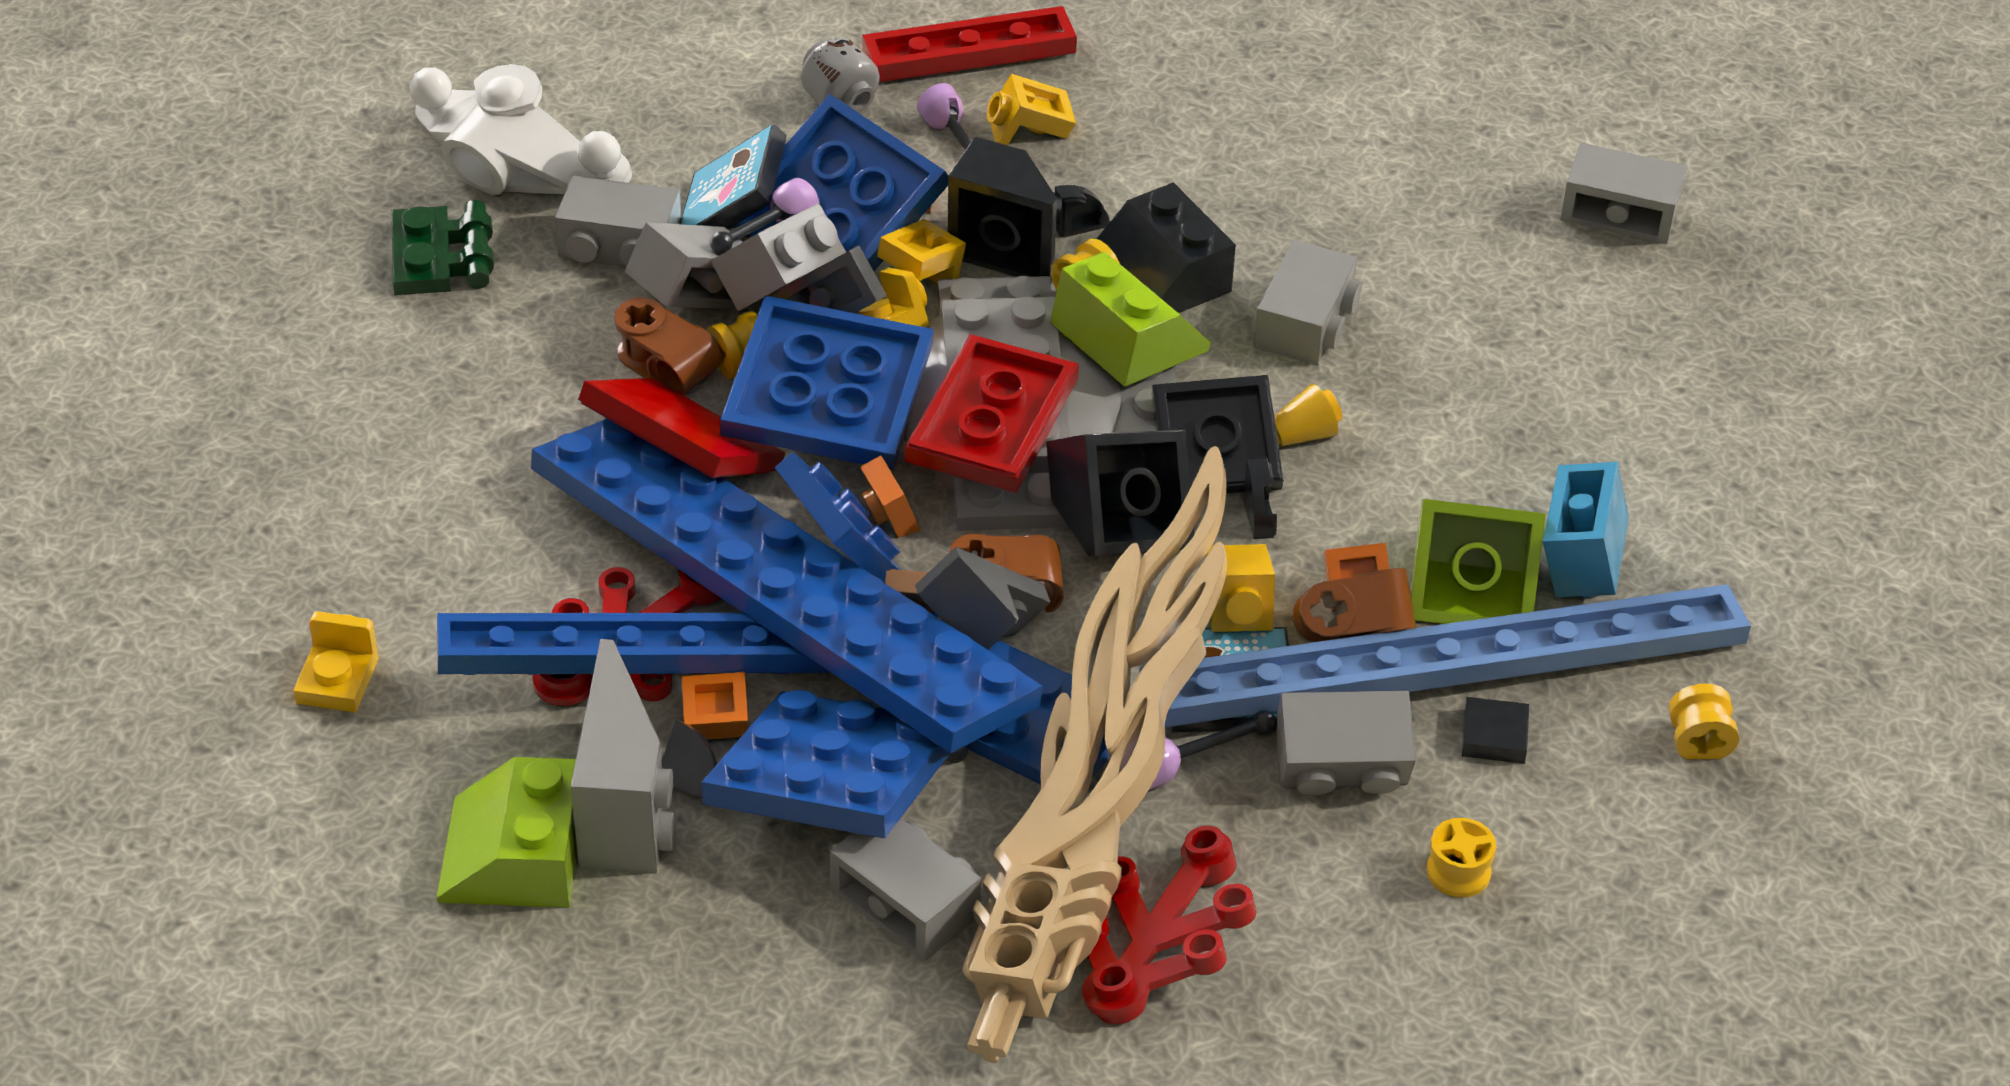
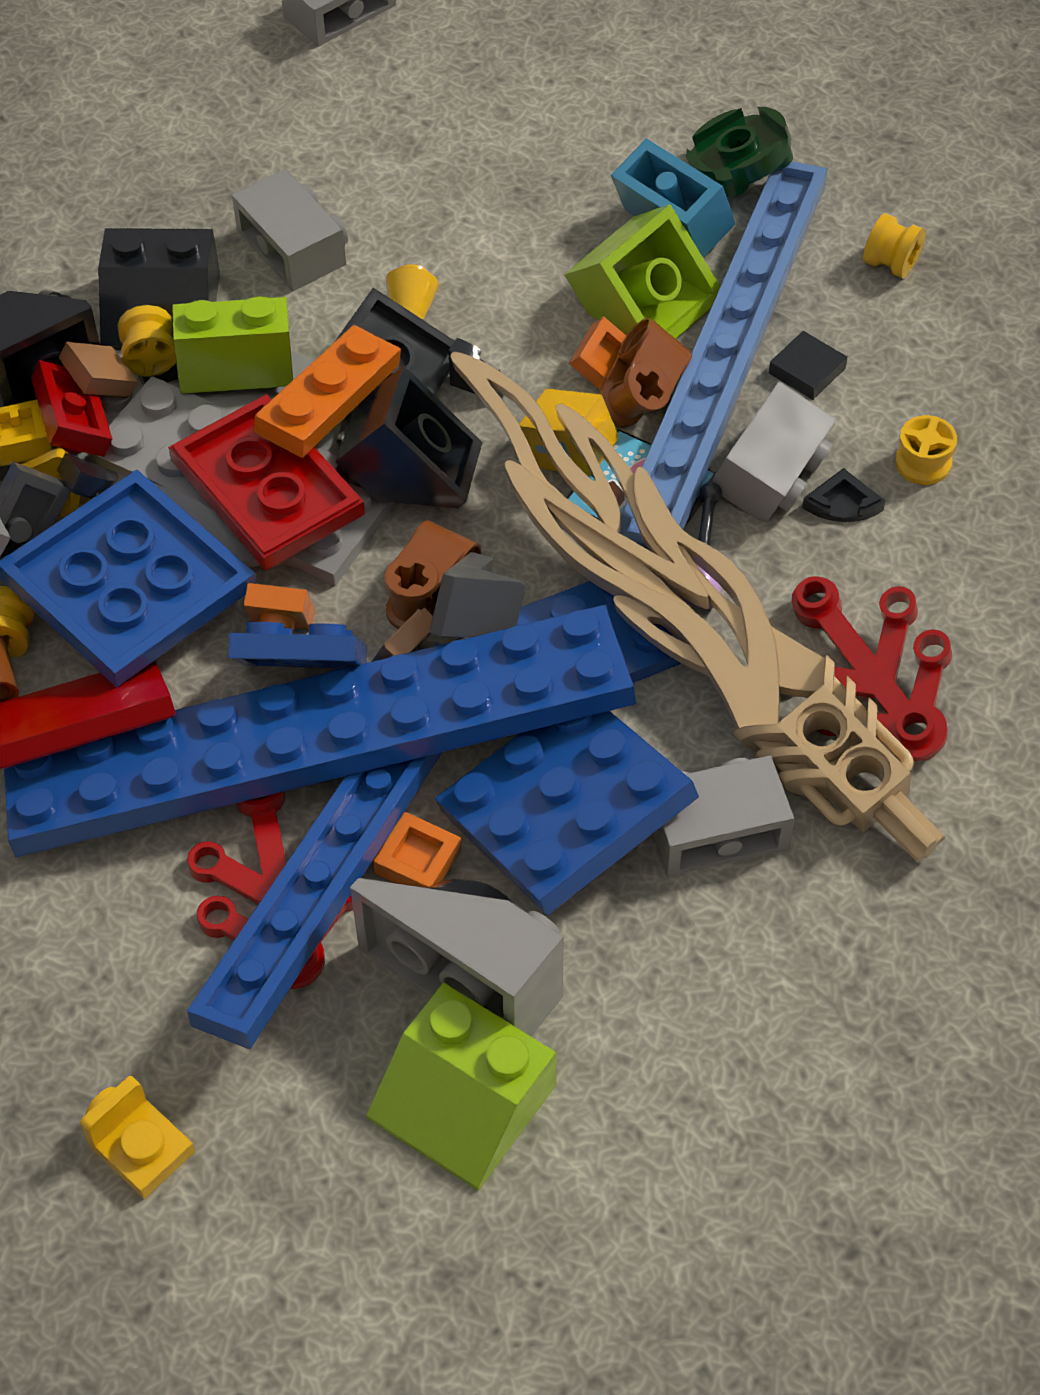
camera: 55 degrees left, 10 degrees up
(901, 304) = (85, 477): none -> black tile
(965, 262) = (69, 416): none -> red plate
(1022, 258) = (98, 370): none -> medium nougat tile
(1114, 396) = (327, 391): none -> orange plate
(1354, 826) = (843, 497): none -> black tile
(1710, 551) = (741, 148): none -> dark green plate

